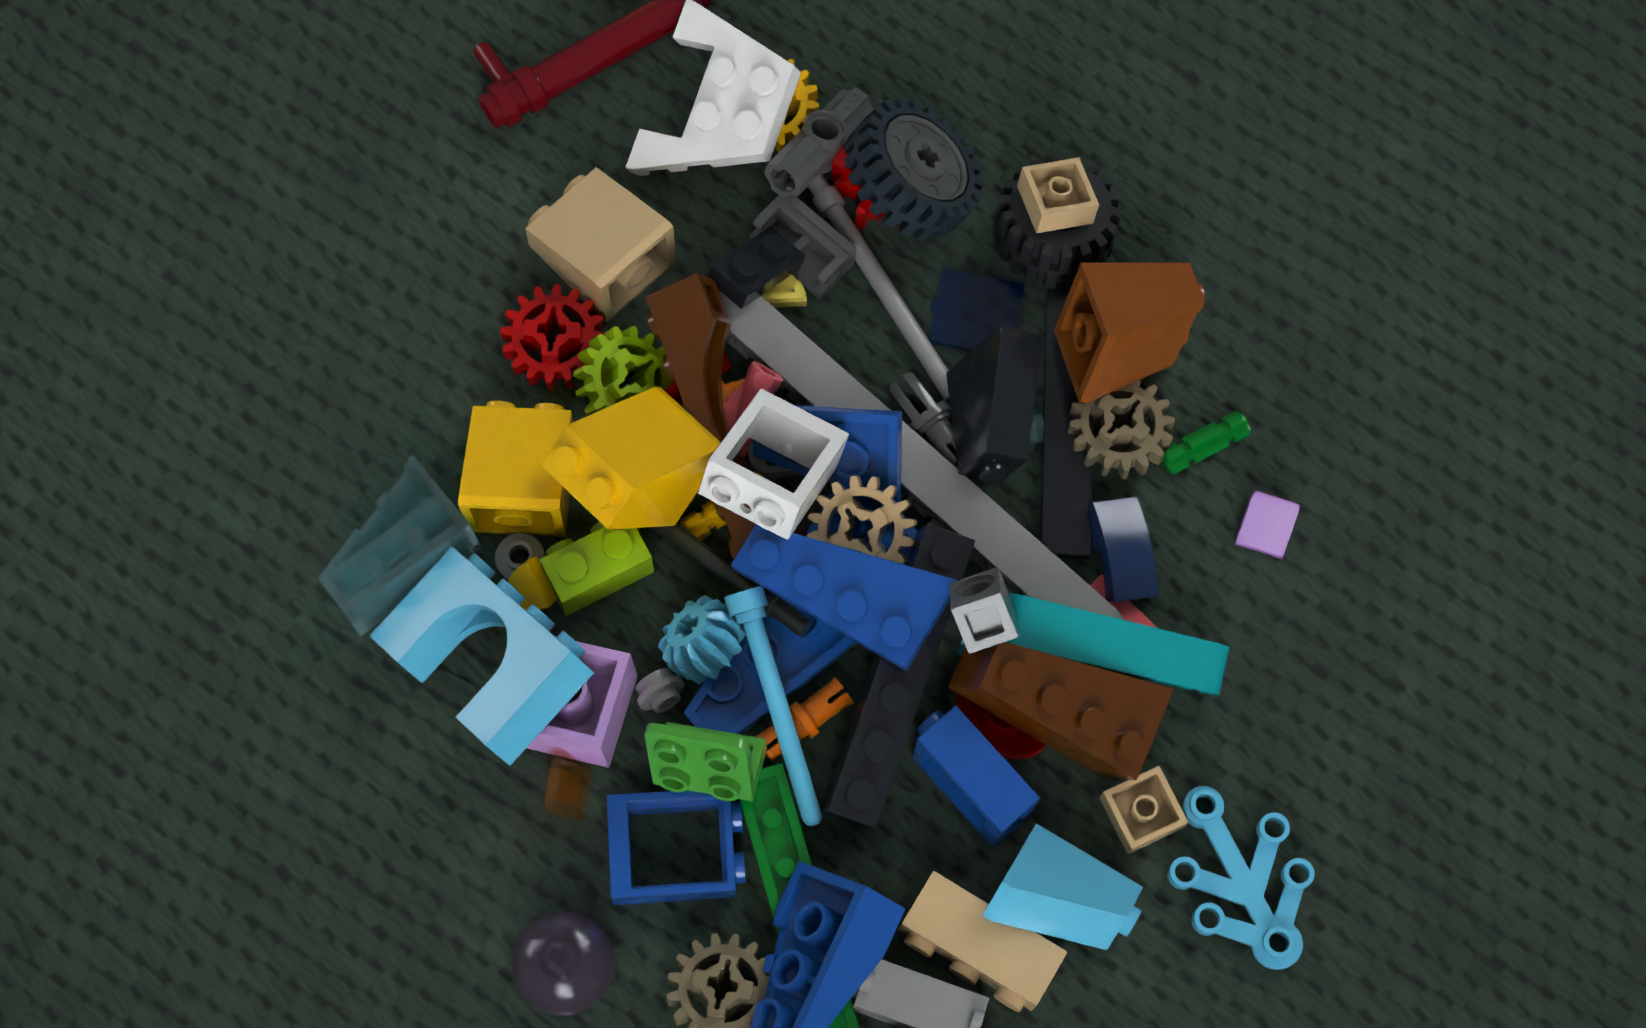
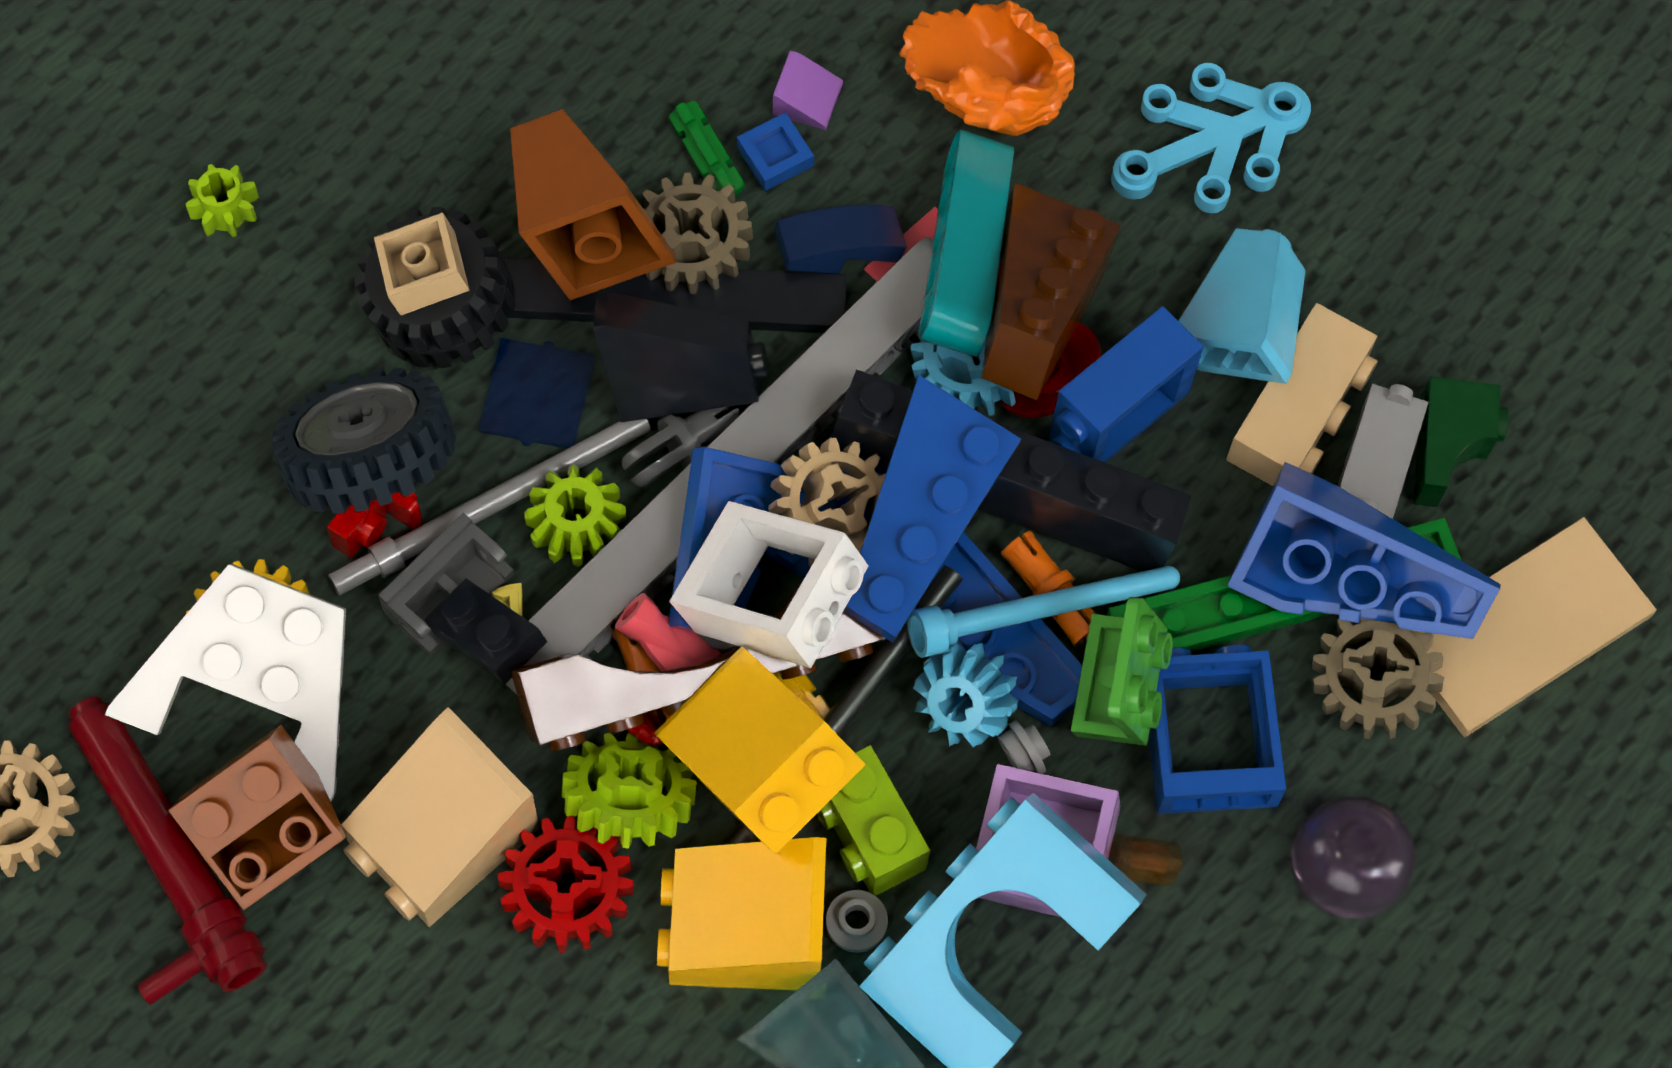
camera: 90 degrees left, 5 degrees down
(533, 584) = (898, 895): yellow tile -> none
(606, 110) = (260, 817): none -> slope
(817, 143) = (318, 553): dark grey piece -> none
(873, 351) = (573, 493): none -> lime gear
(983, 610) = (962, 340): brick -> none
(1139, 54) = (227, 214): none -> lime gear
(1143, 810) = (1149, 232): tan piece -> none
(1205, 496) = (775, 151): none -> blue plate
(1290, 671) = (990, 66): none -> orange hair

